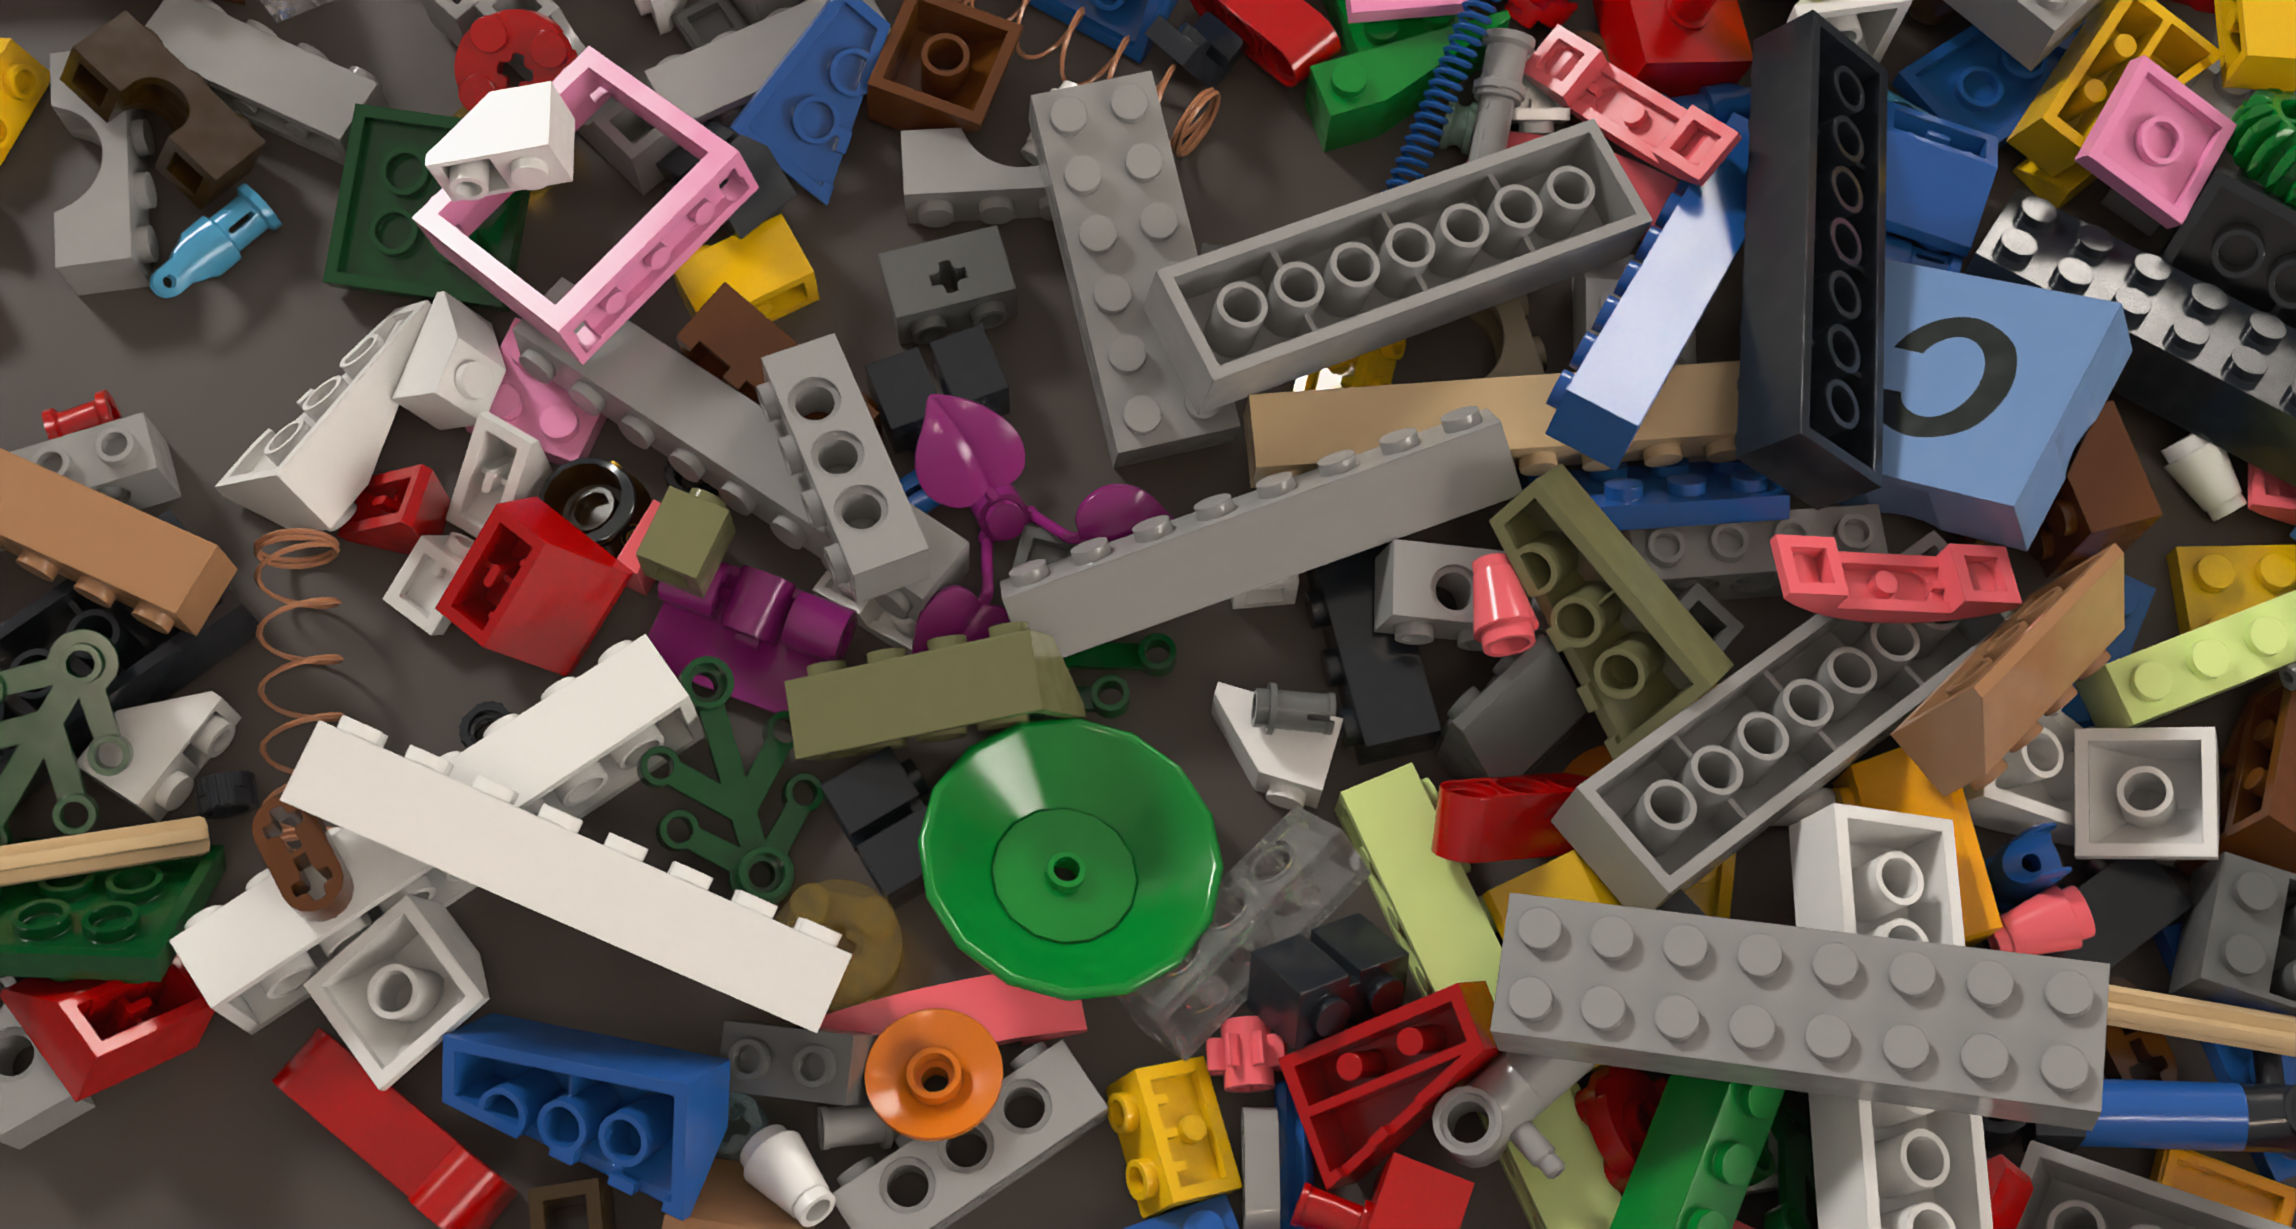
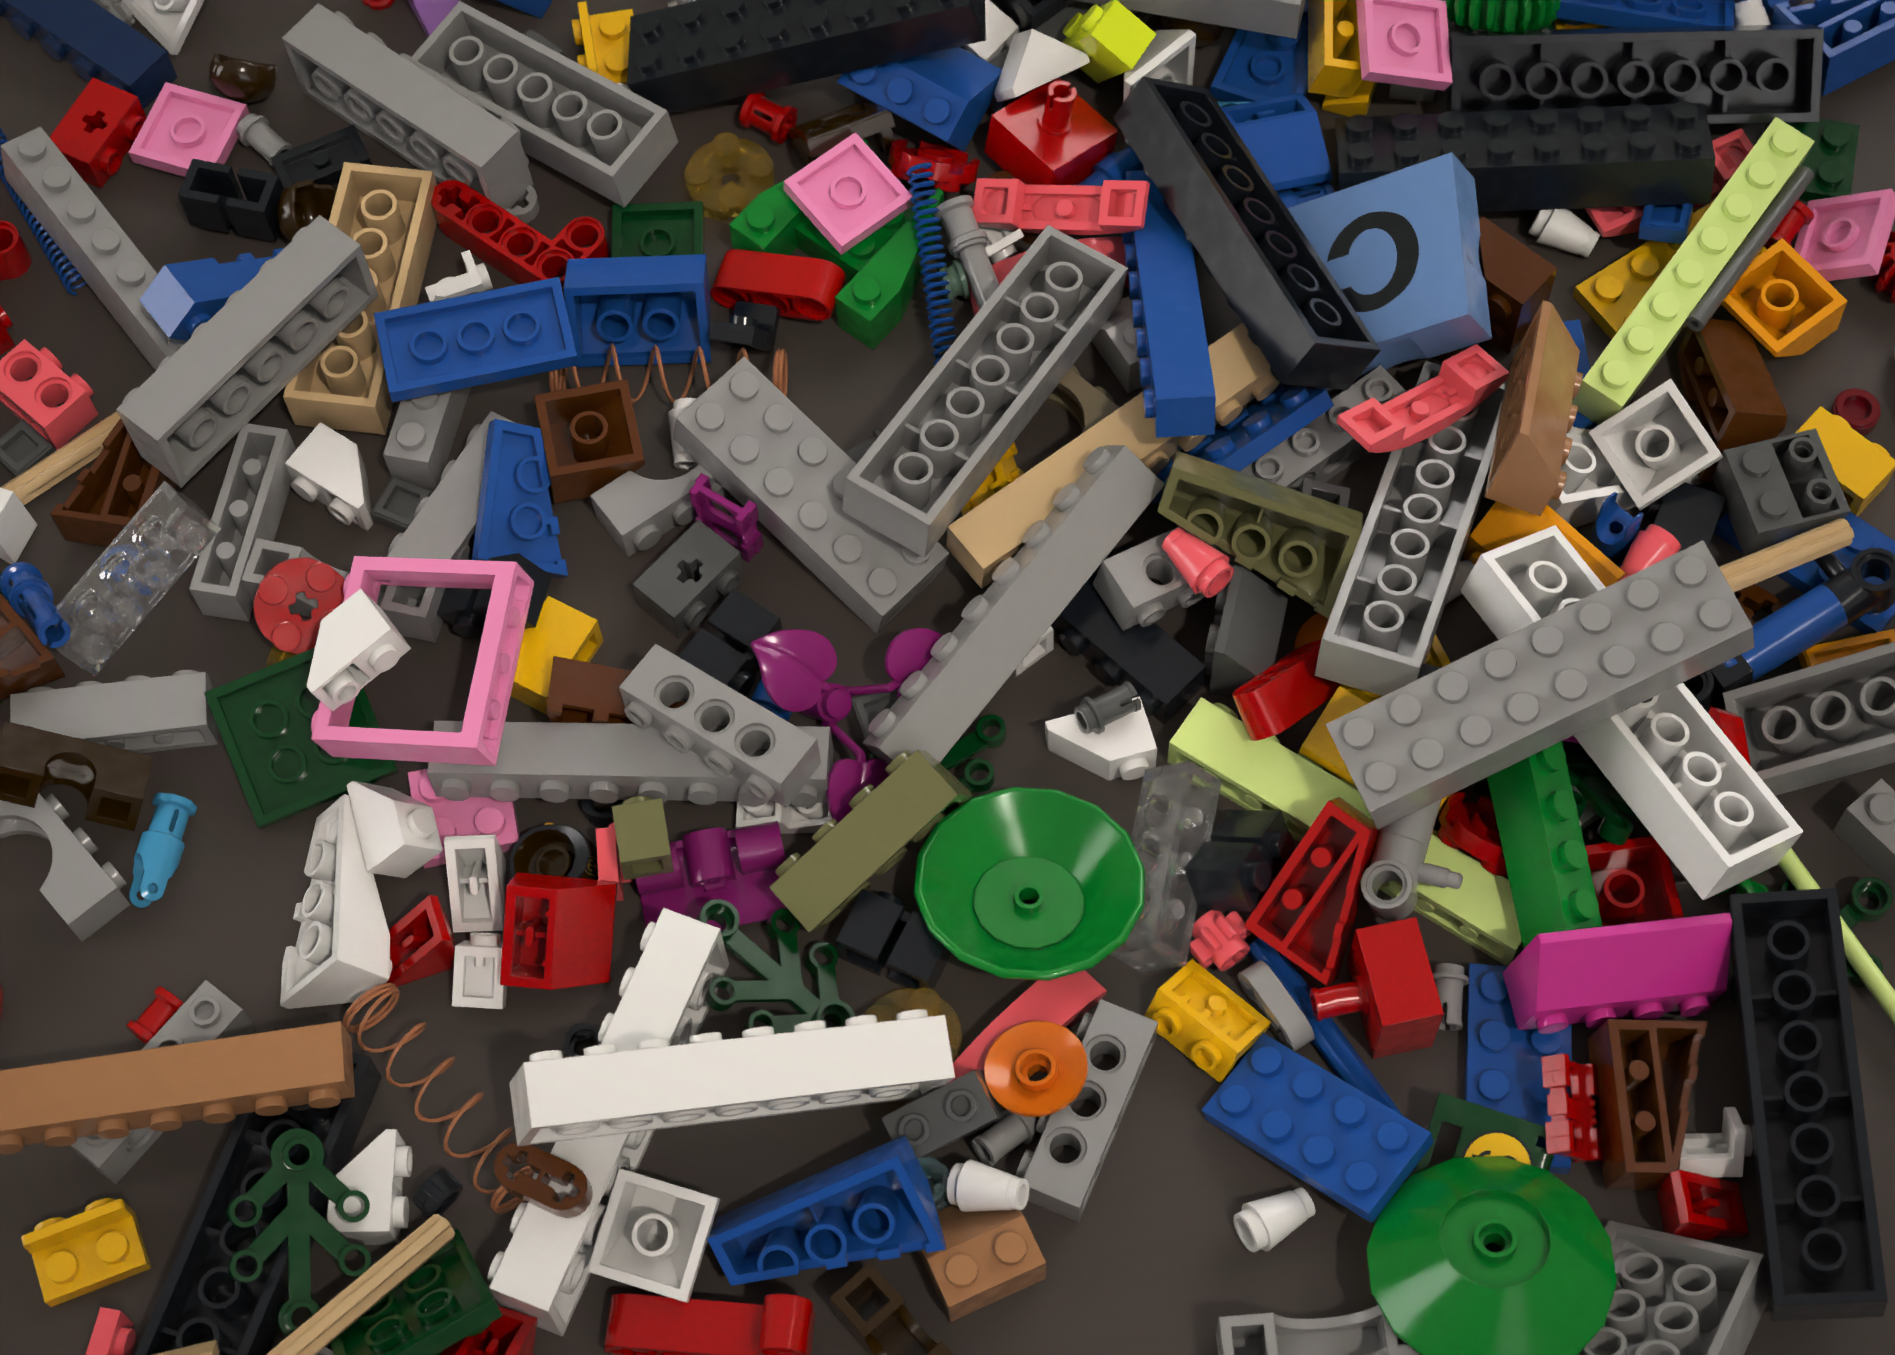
camera: 25 degrees left, 5 degrees down
(1034, 255) = (742, 524): none -> magenta piece

